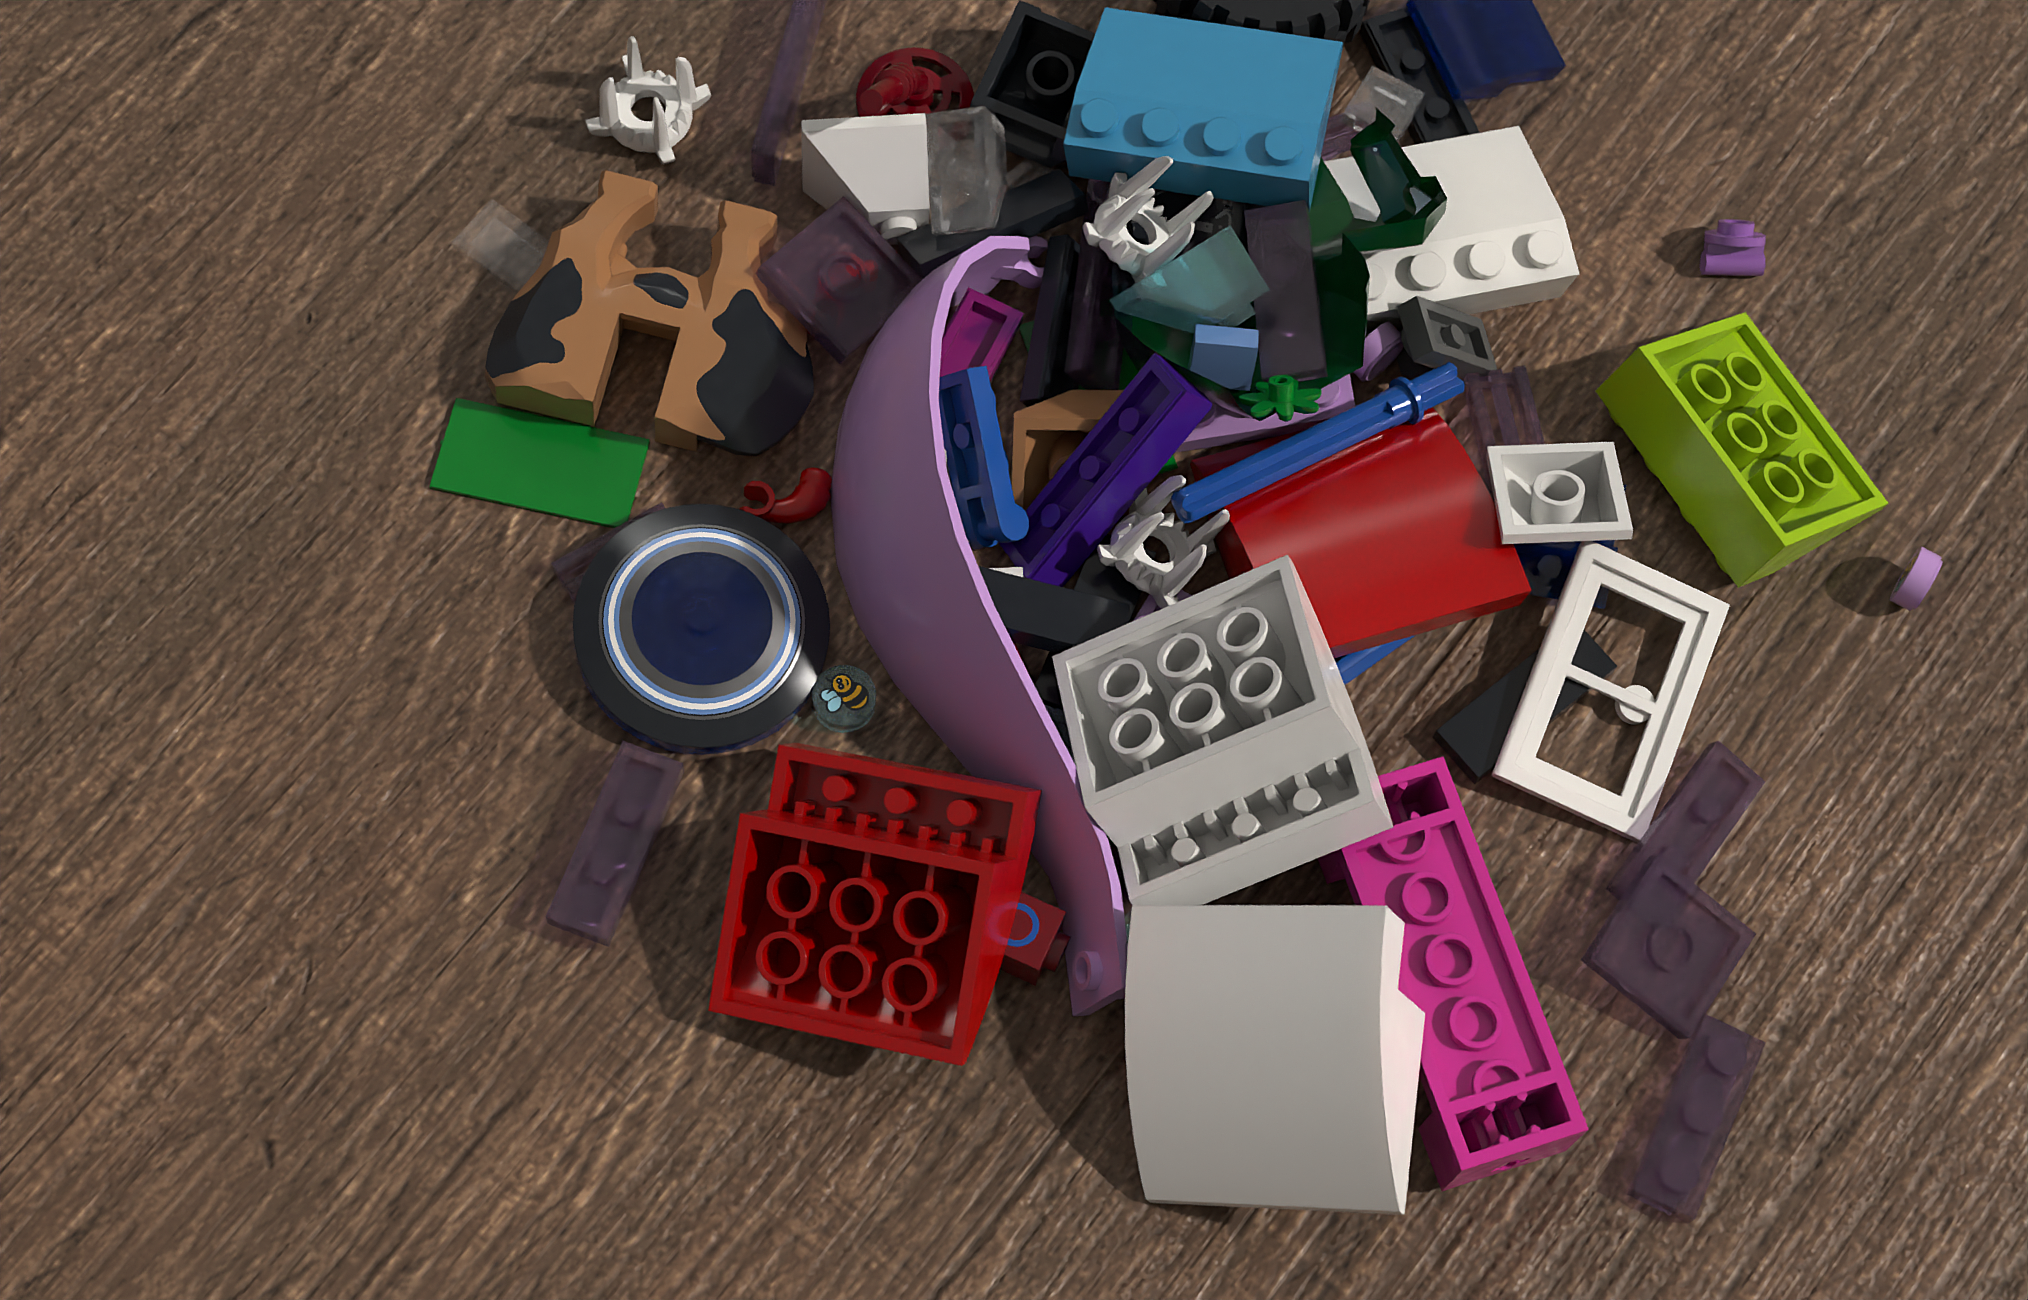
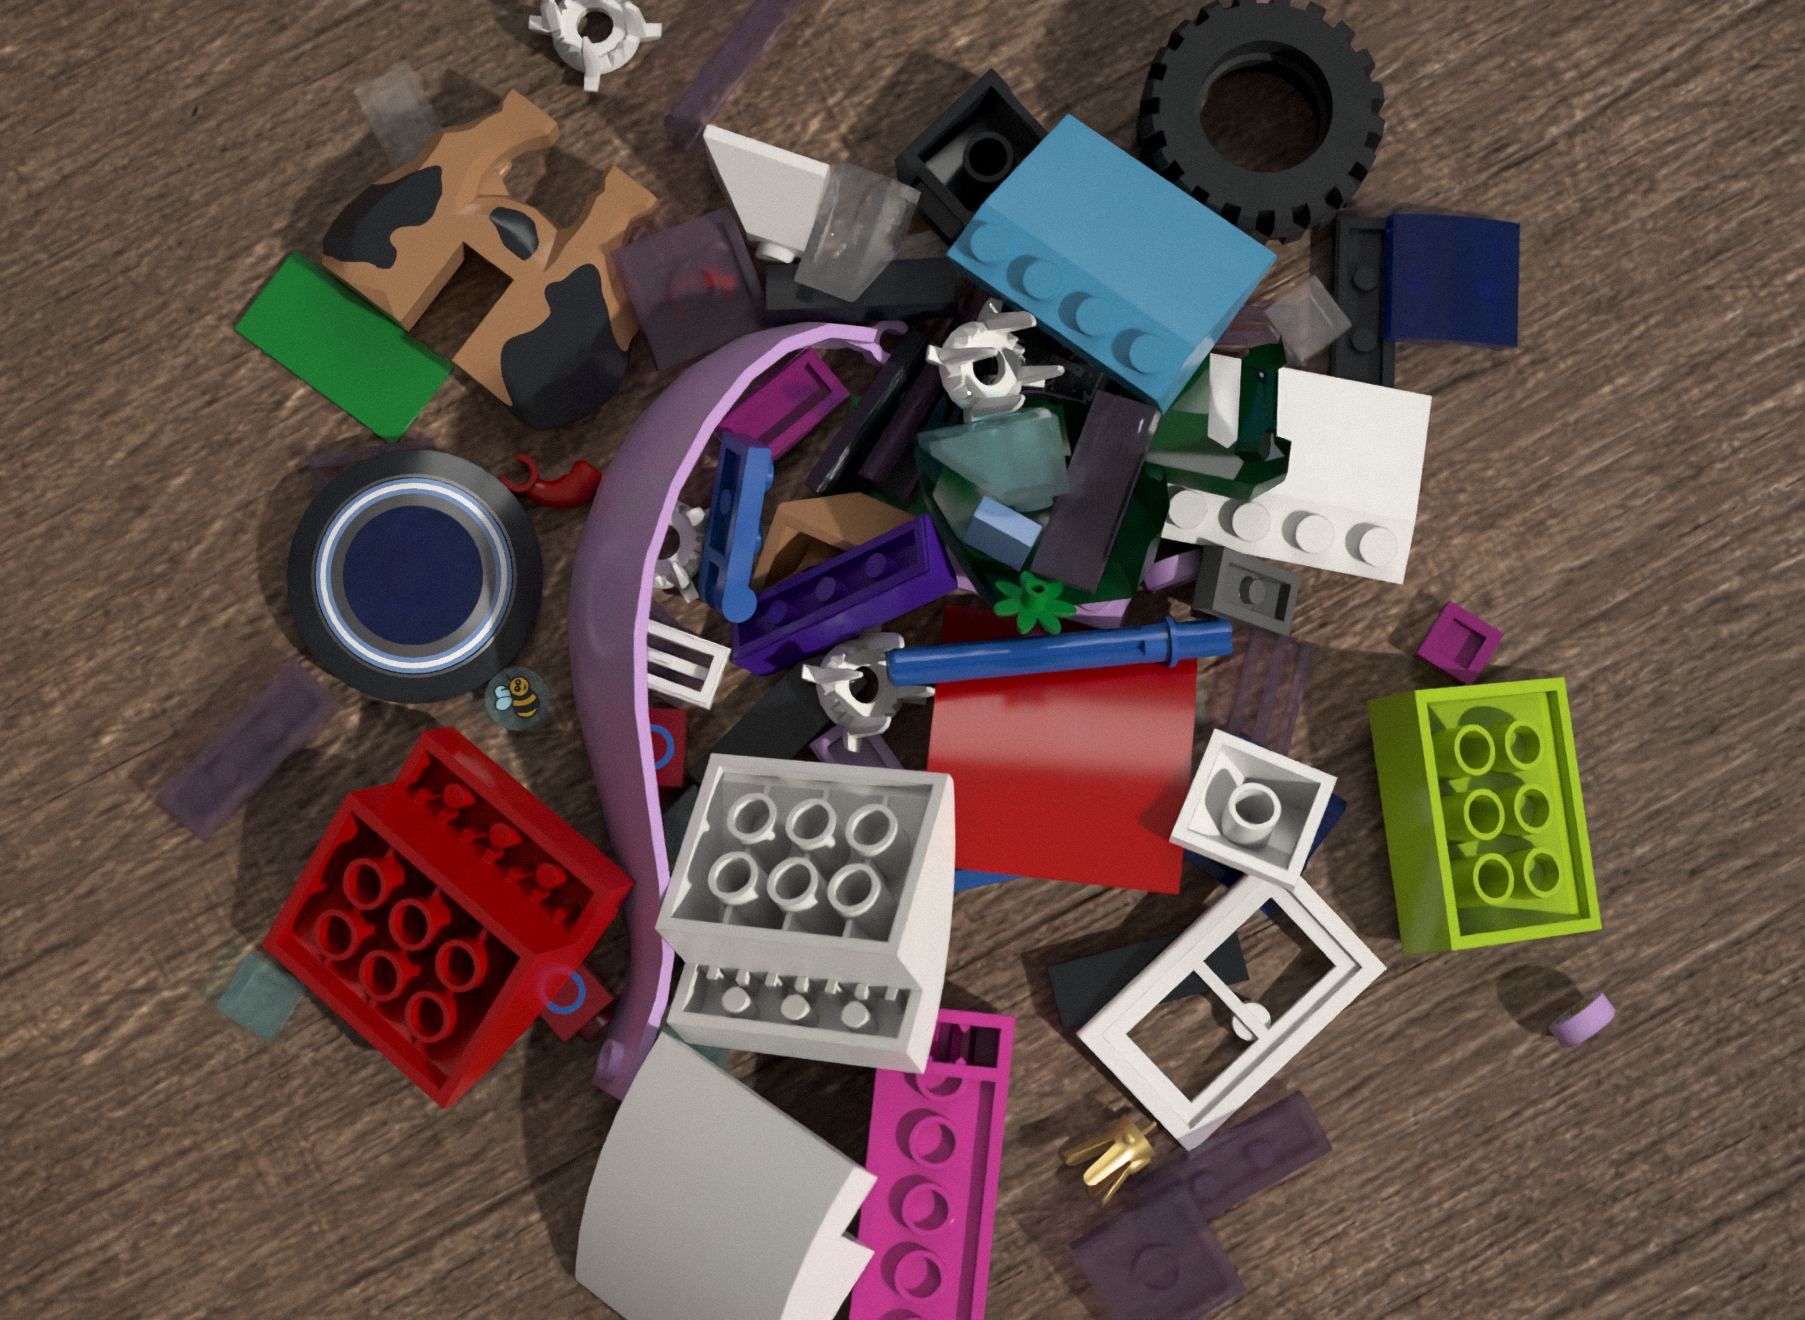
camera: 30 degrees right, 15 degrees up
(725, 1067) = (261, 997): none -> clear light blue tile
(910, 88) = (849, 117): dark red dish -> none
(1050, 614) = (718, 703): black tile -> none
(1587, 858) = (1125, 1155): none -> pearl gold piece
(1641, 317) = (1458, 644): none -> magenta tile
(1733, 249) = (1585, 608): medium lavender plate -> none

